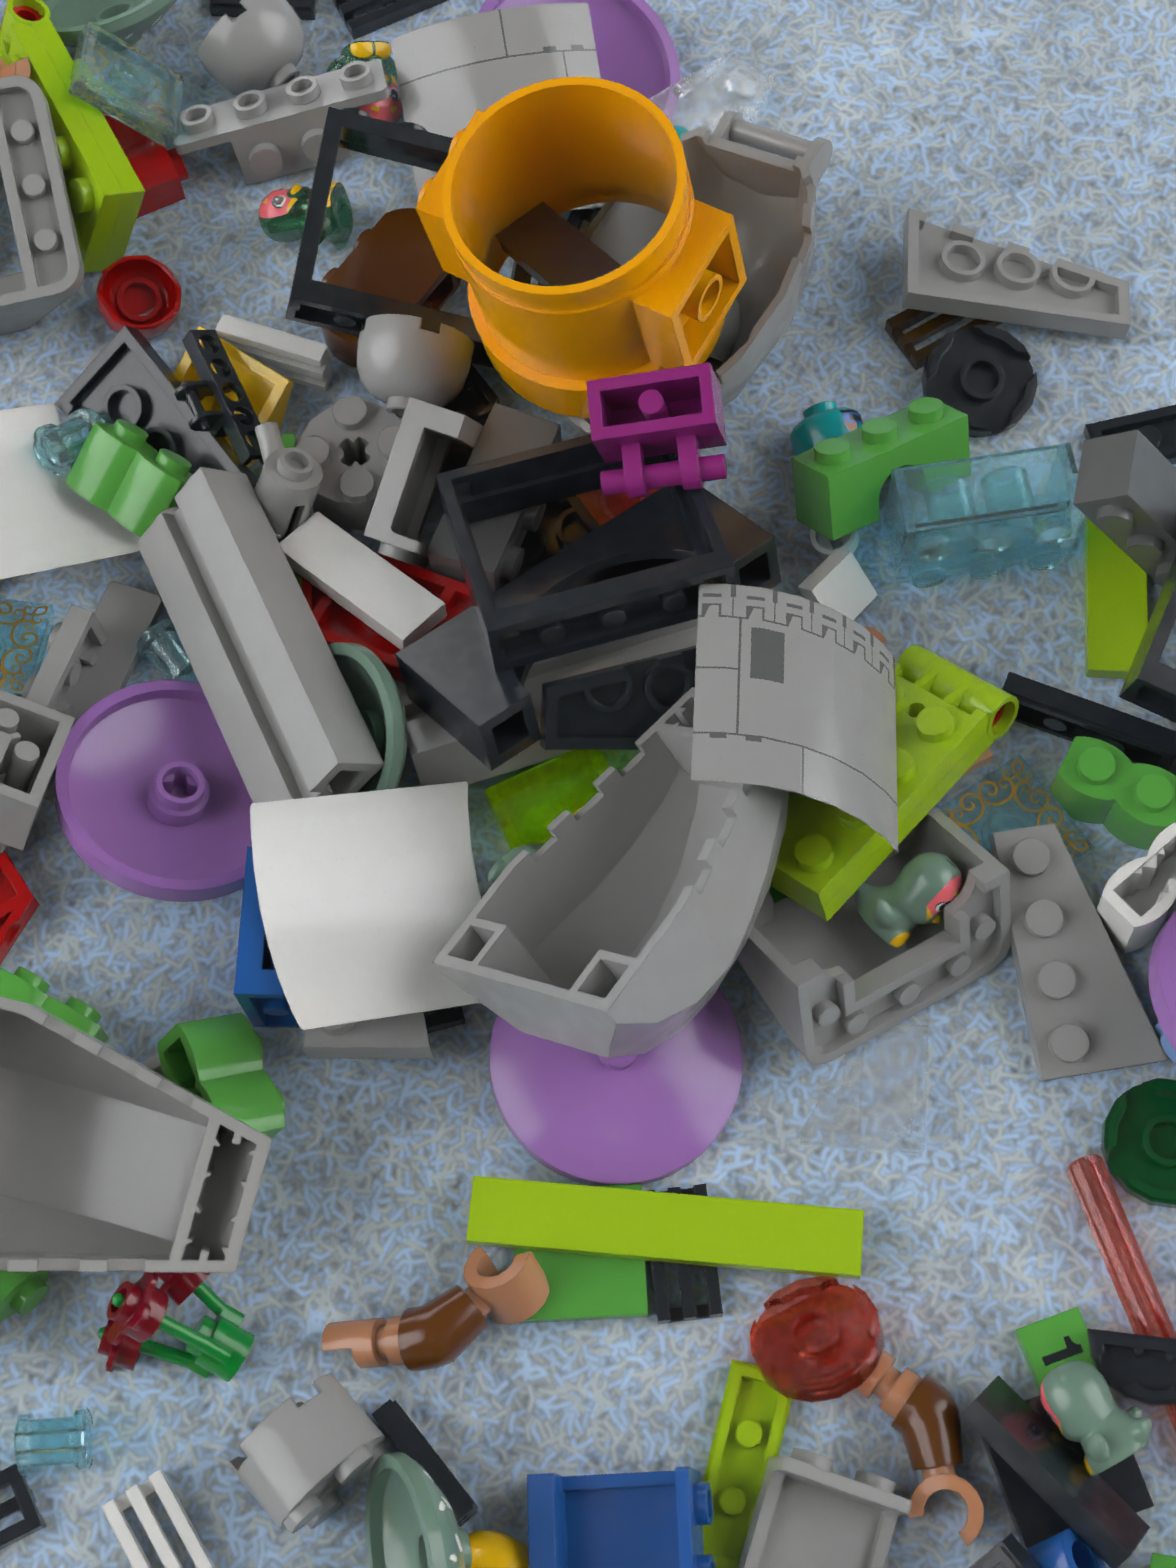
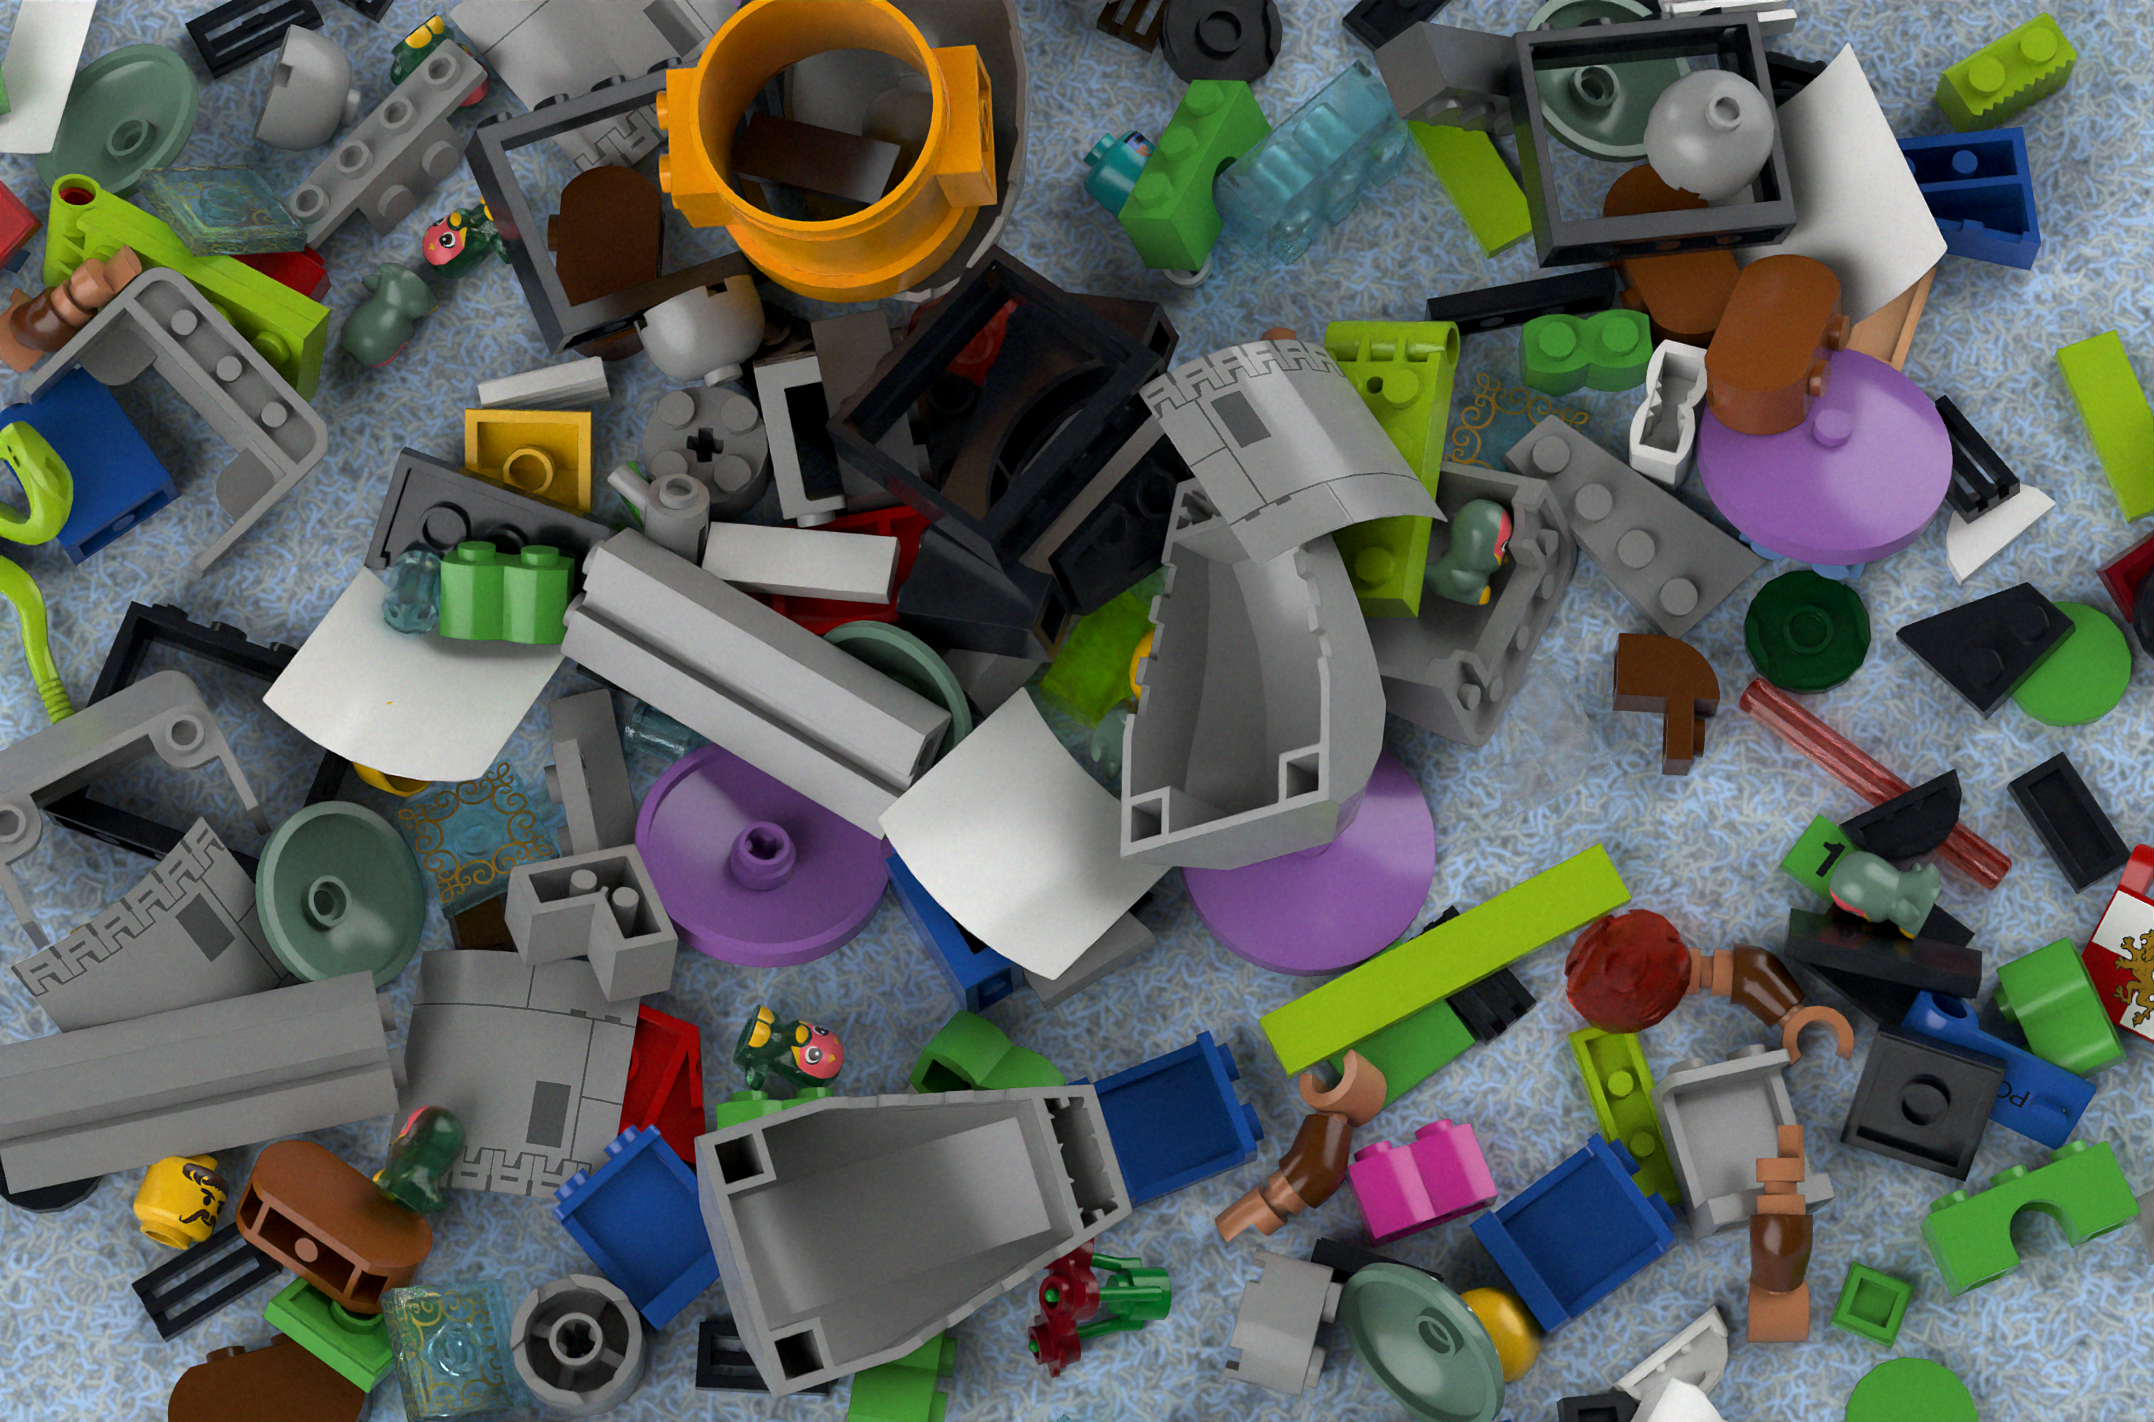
camera: 35 degrees left, 5 degrees up
(91, 961) = (794, 1051): none -> clear green animal
(135, 287) = (358, 405): red hair -> none
(198, 239) = (385, 323): none -> sand green animal
(222, 422) = (527, 447): black piece -> none
(338, 1214) = (1177, 1120): none -> blue panel
(517, 1406) = (1419, 1182): none -> dark pink brick
(658, 416) = (1004, 257): magenta brick -> none
(839, 584) = (1223, 310): white tile -> none
(1016, 1106) = (1668, 679): none -> reddish brown brick

